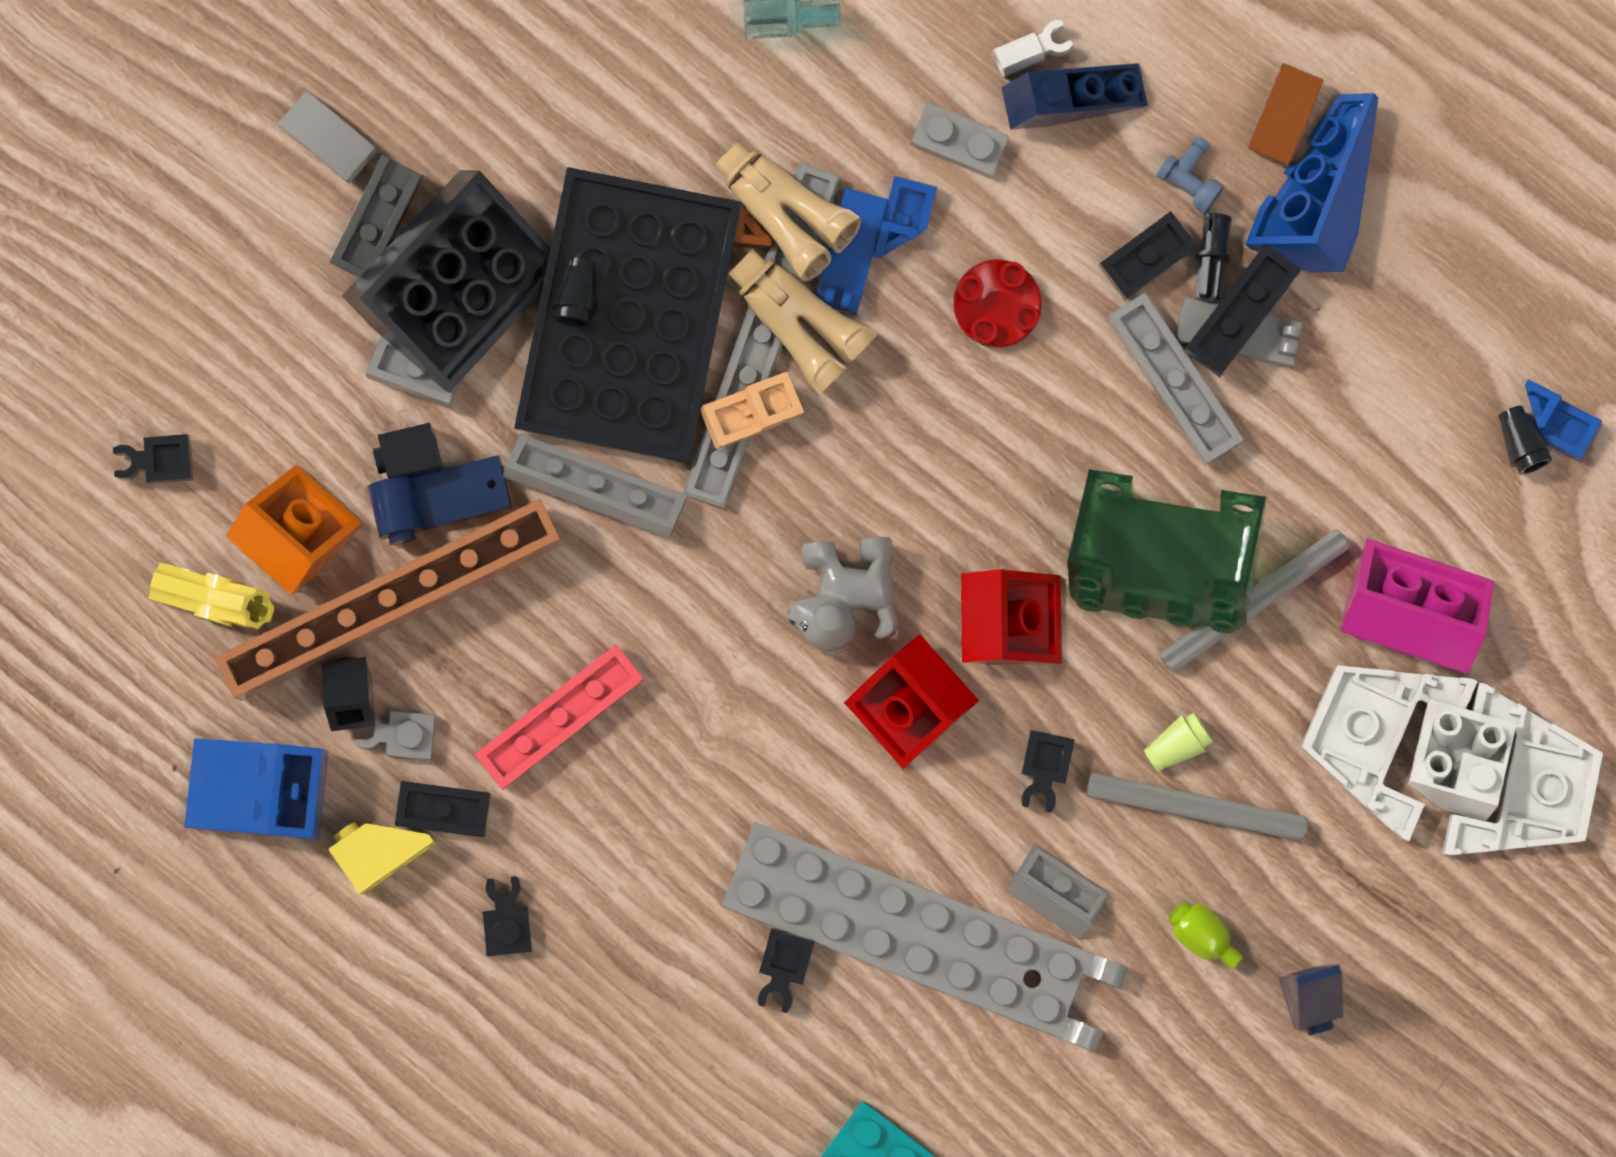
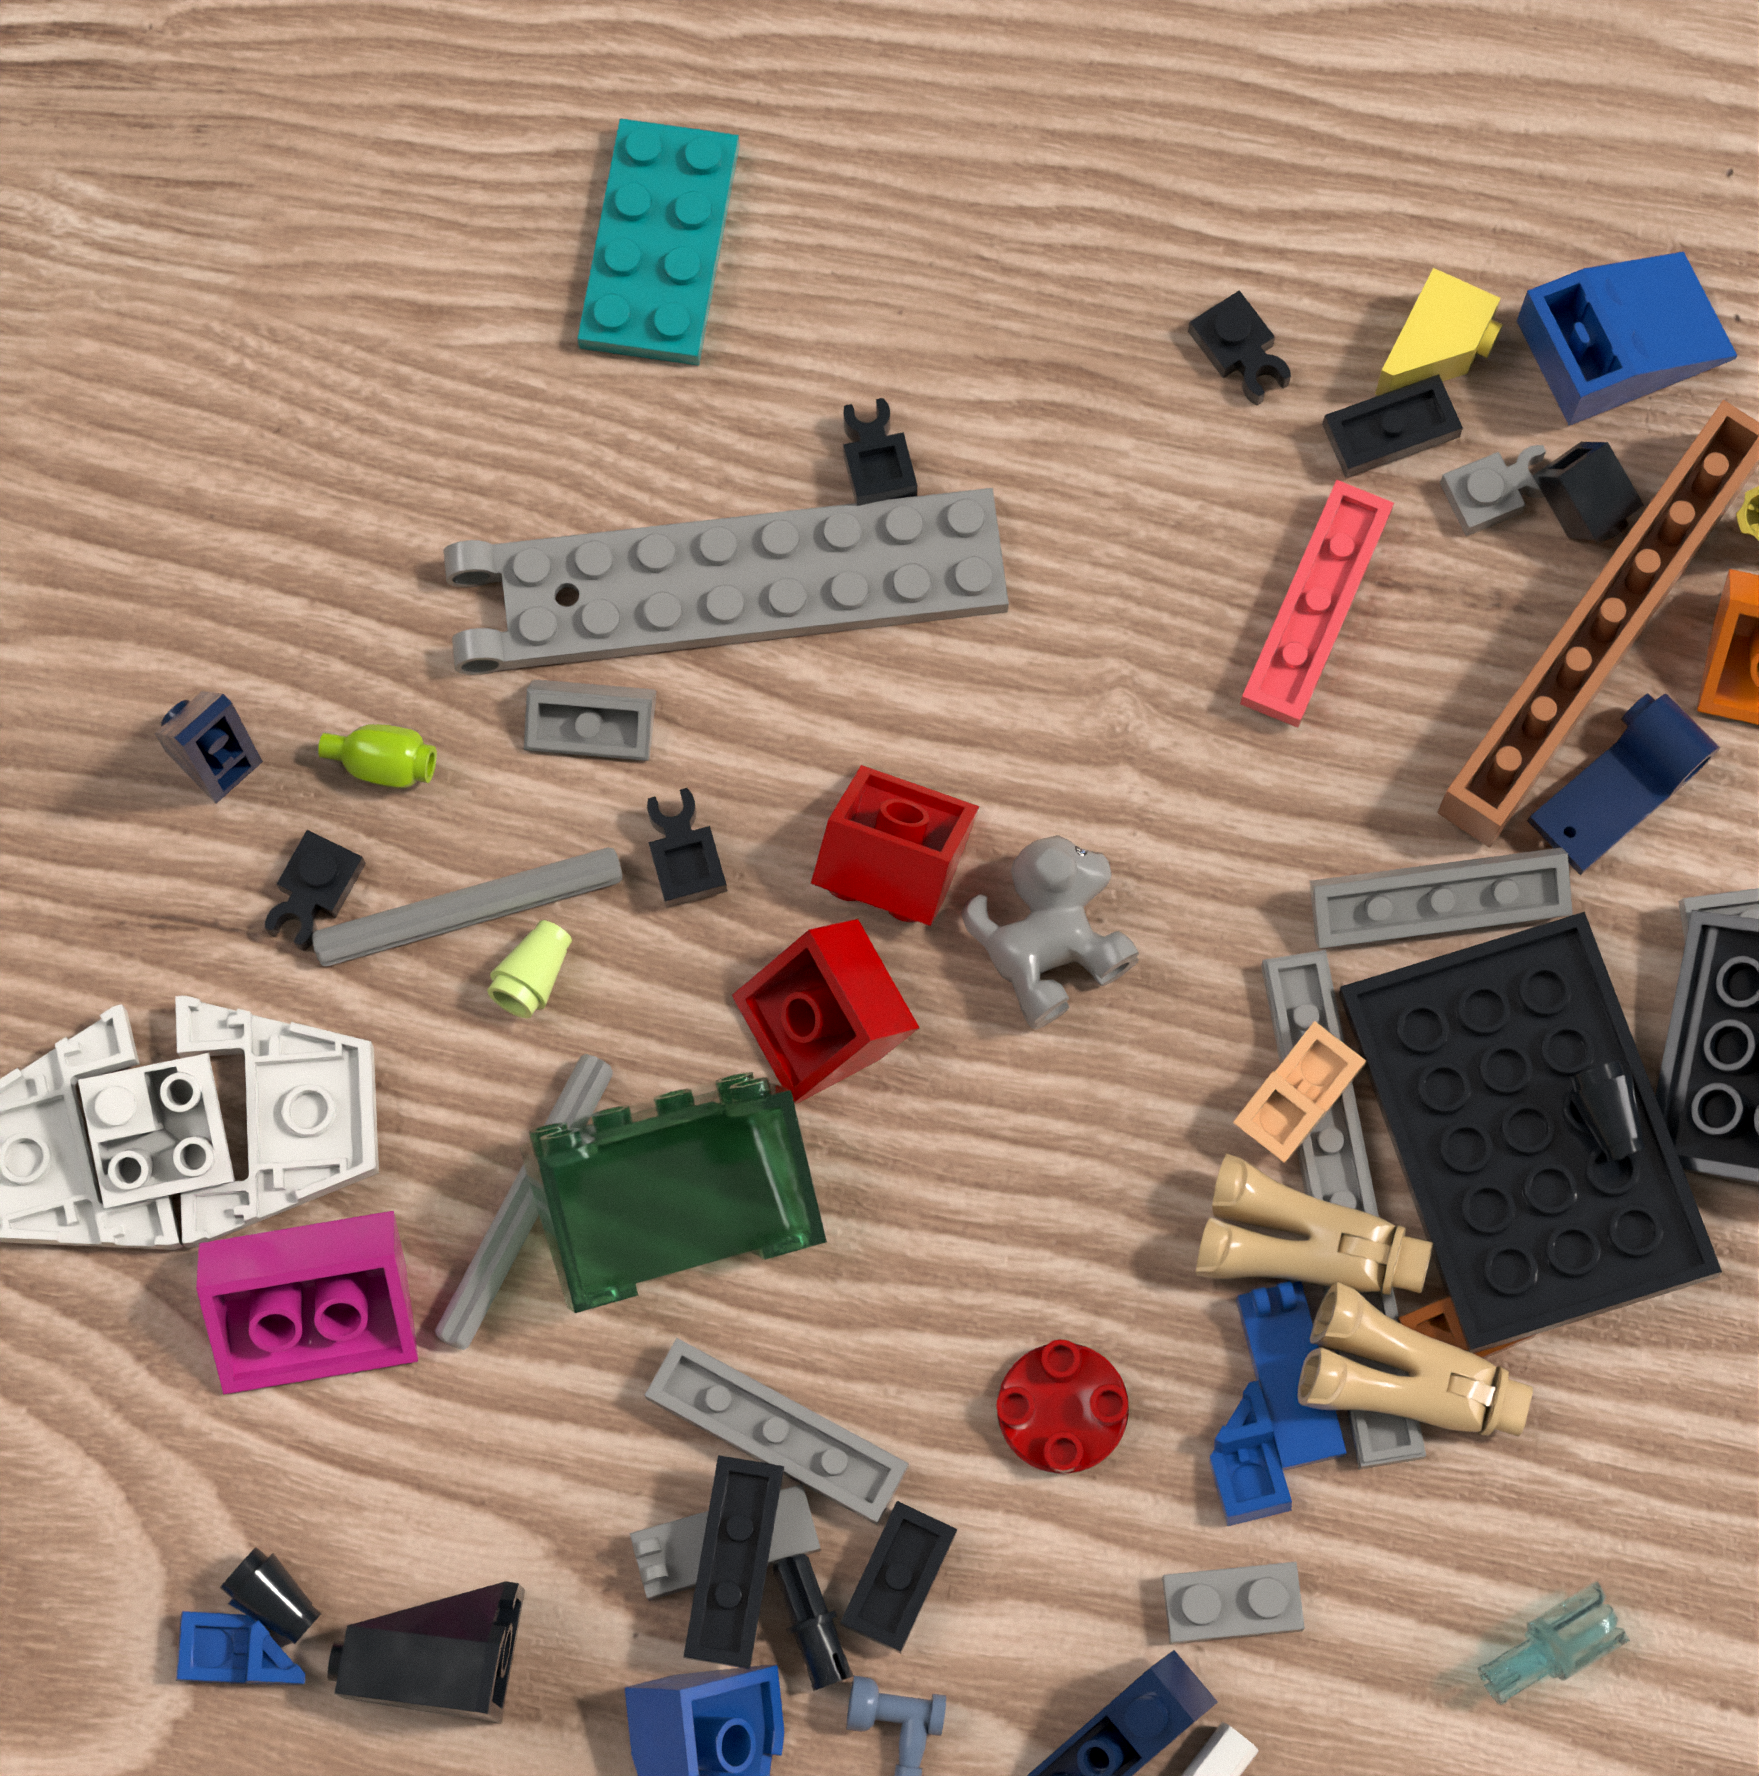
camera: 155 degrees right, 10 degrees down
(408, 452) = (1693, 815): black brick -> none
(1282, 875) = (315, 880): none -> black plate
(1446, 351) = (435, 1655): none -> black slope

